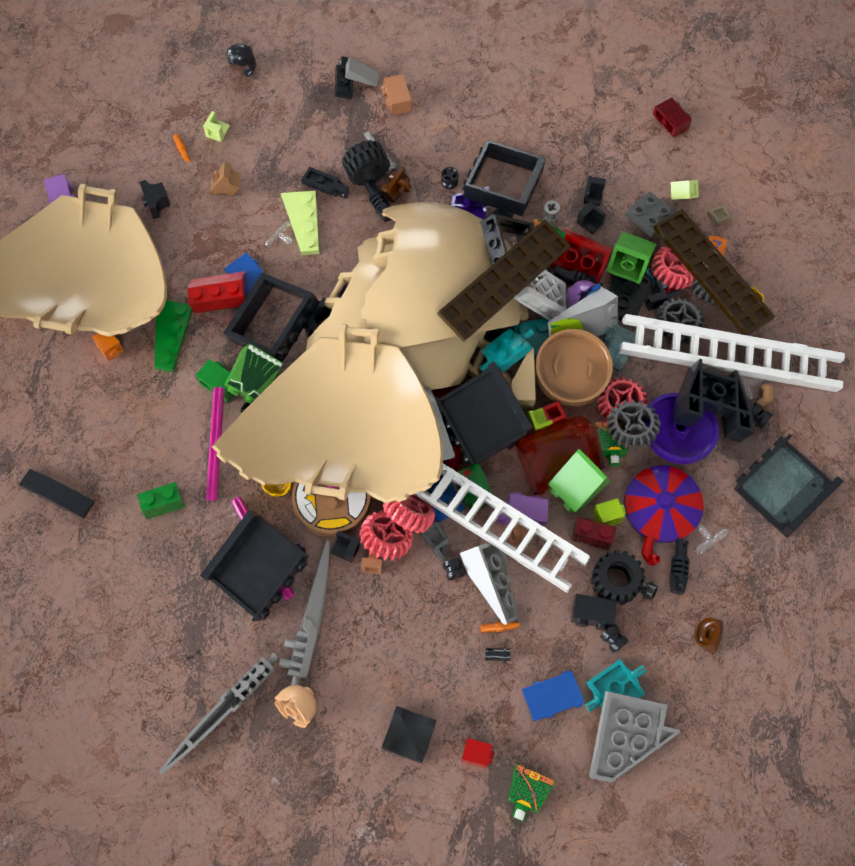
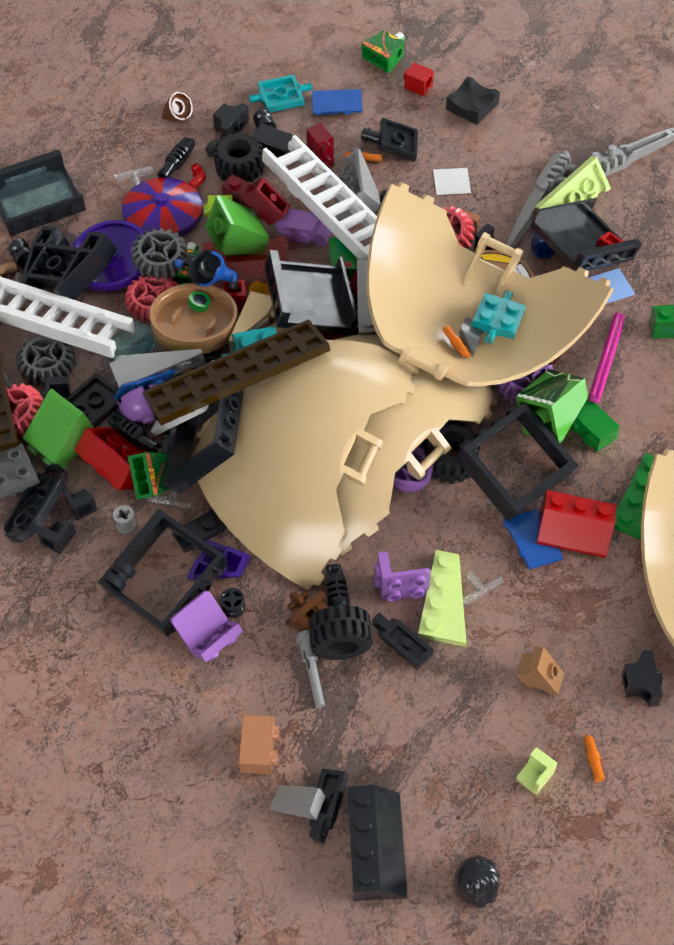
camera: 160 degrees left, 10 degrees down
(219, 532) = (618, 283): none -> light blue sticker
(230, 573) = (608, 239): none -> red tile
(277, 627) = (581, 185): none -> yellowish green wing
(297, 703) = (566, 136): light nougat cylinder -> none
(307, 65) = (376, 844): none -> black slope
(312, 428) = (498, 316): none -> teal plate
(332, 407) = (470, 335): none -> dark grey slope
(336, 208) = (399, 584): none -> medium lavender bracket
(343, 395) = (456, 341): none -> orange piece
(403, 624) = (451, 181): none -> white sticker
(456, 152) = (205, 627): none -> medium lavender bracket
(471, 653) = (398, 139): none -> black tile
(531, 157) = (119, 574): none -> black wheel
(538, 419) = (255, 278): lime panel -> none
(541, 607) = (321, 143): none -> dark red brick
(564, 509) = (266, 201): none -> dark red brick
(576, 385) = (198, 301): none -> green tile
(580, 409) = (208, 269): none -> black piece
(618, 199) = (35, 504): none -> black tile
(627, 734) = (285, 62): light grey wing -> none
(649, 629) = (230, 118): none -> black brick

